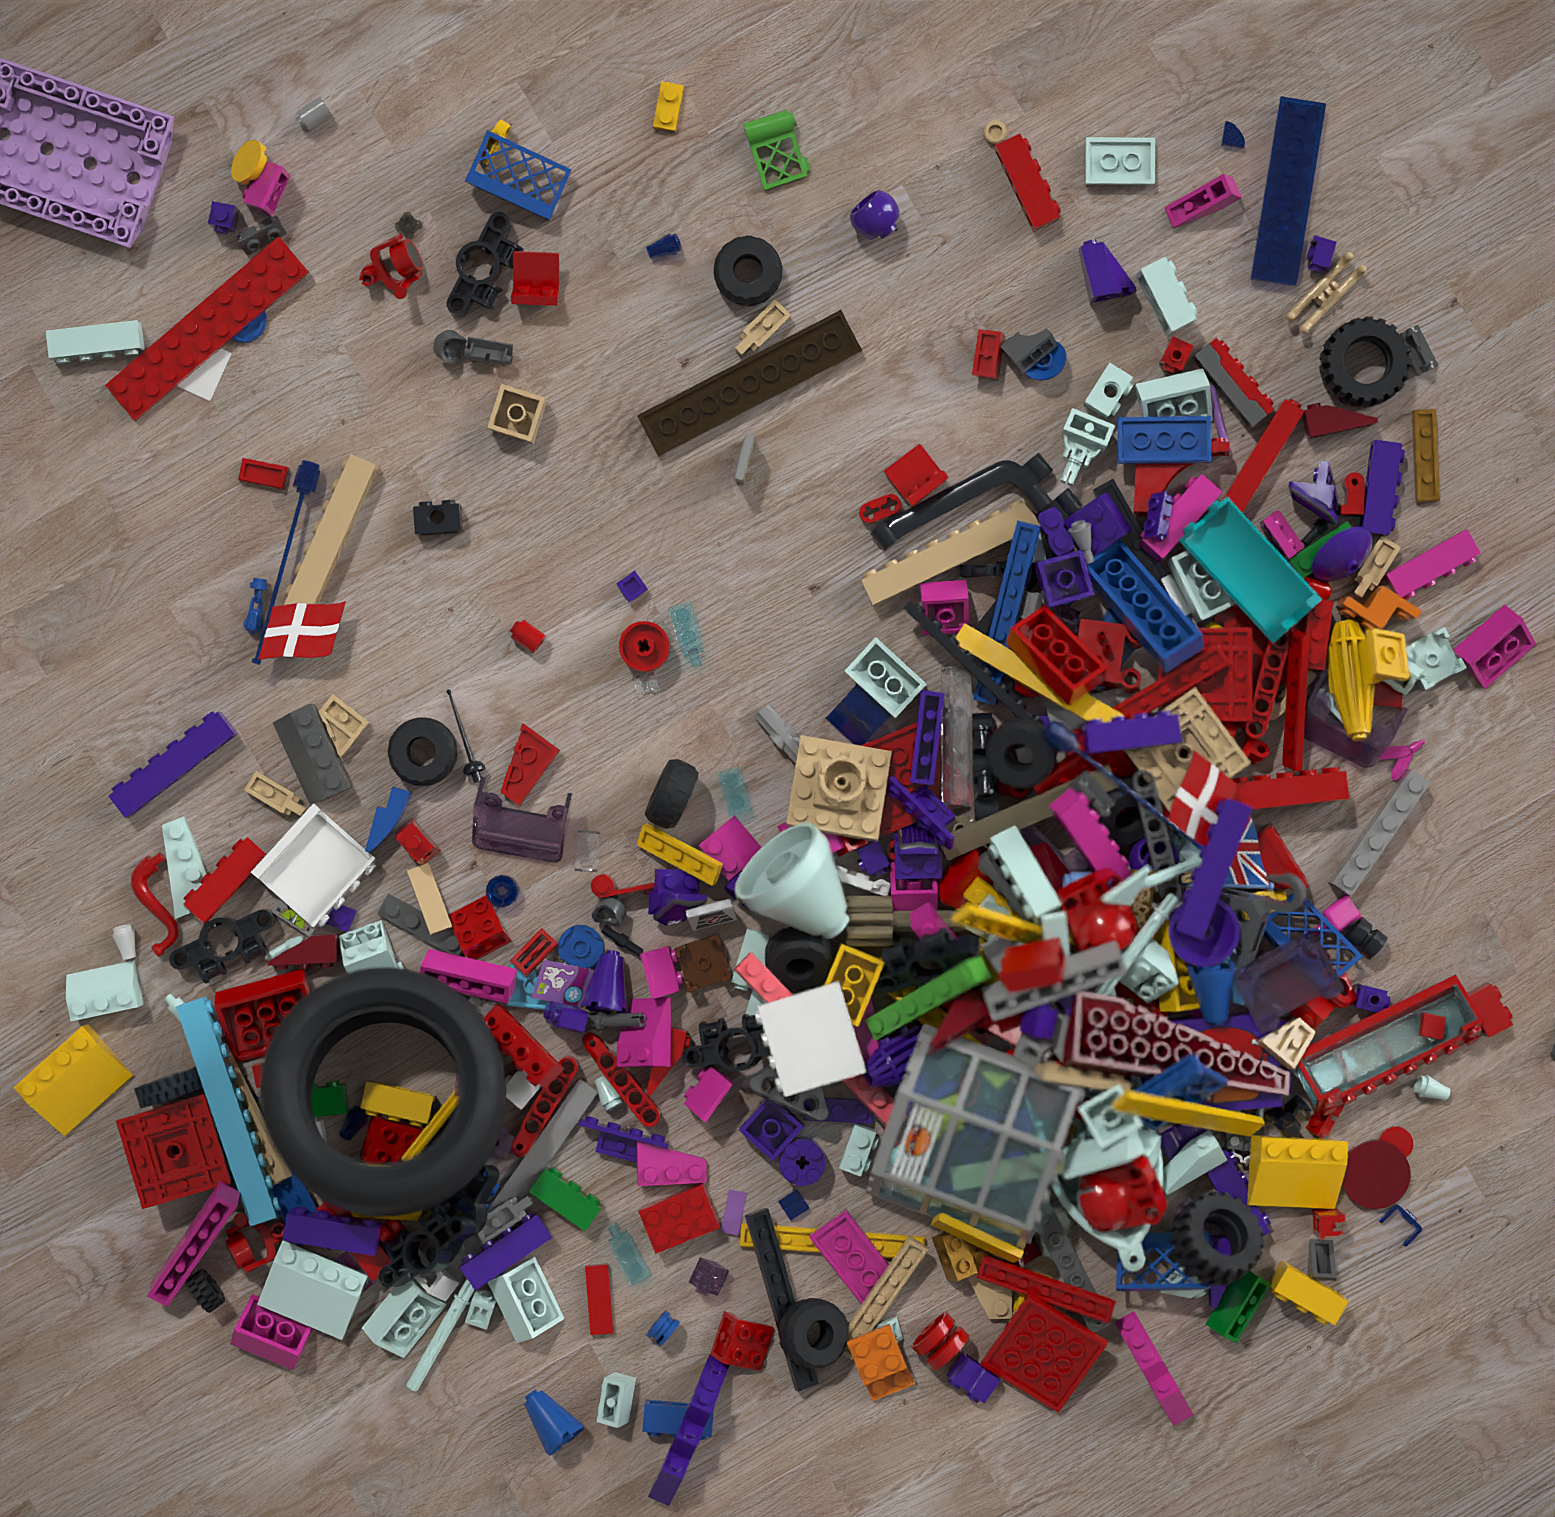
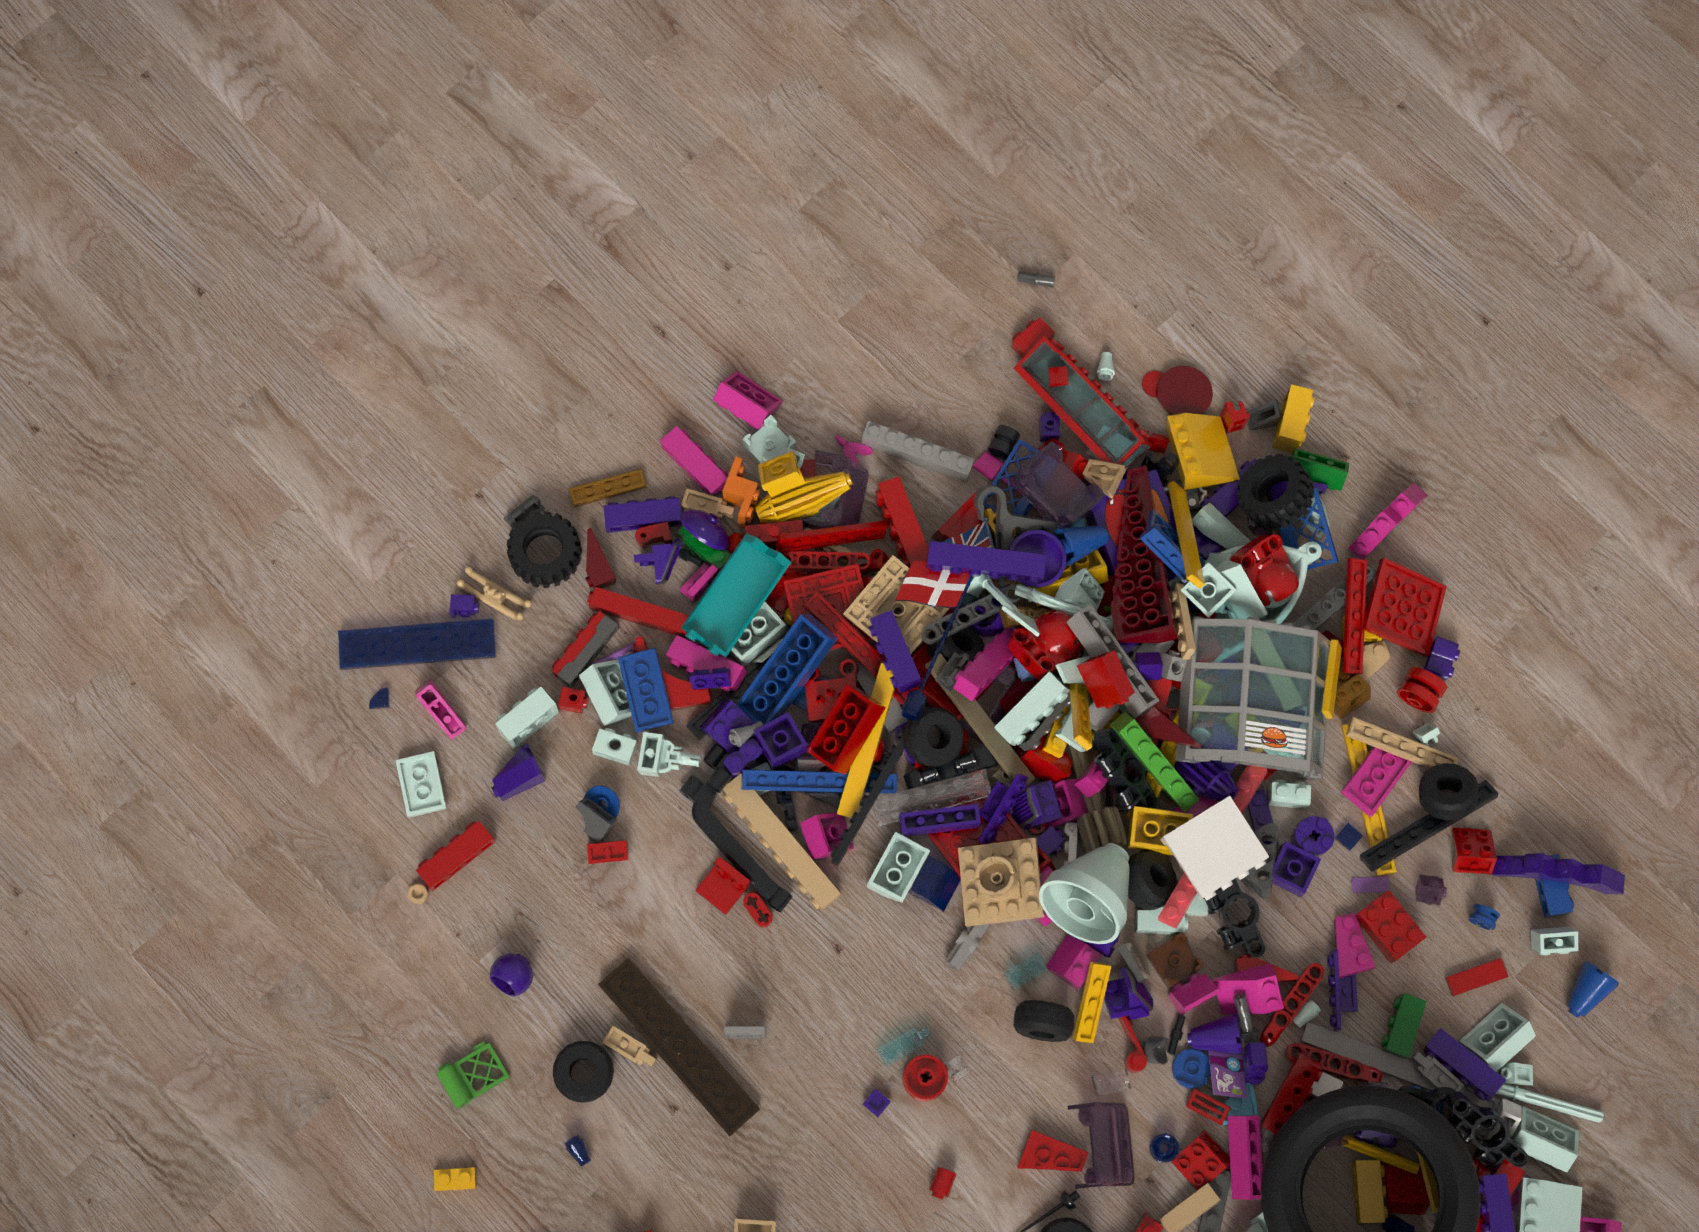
camera: 110 degrees left, 15 degrees down
(628, 1255) = (1433, 962): clear light blue hinge -> none
(708, 1092) = (1281, 928): dark pink slope -> none
(880, 1362) = (1453, 733): orange bracket -> none
(1409, 1217) = (1210, 359): clear blue piece -> none

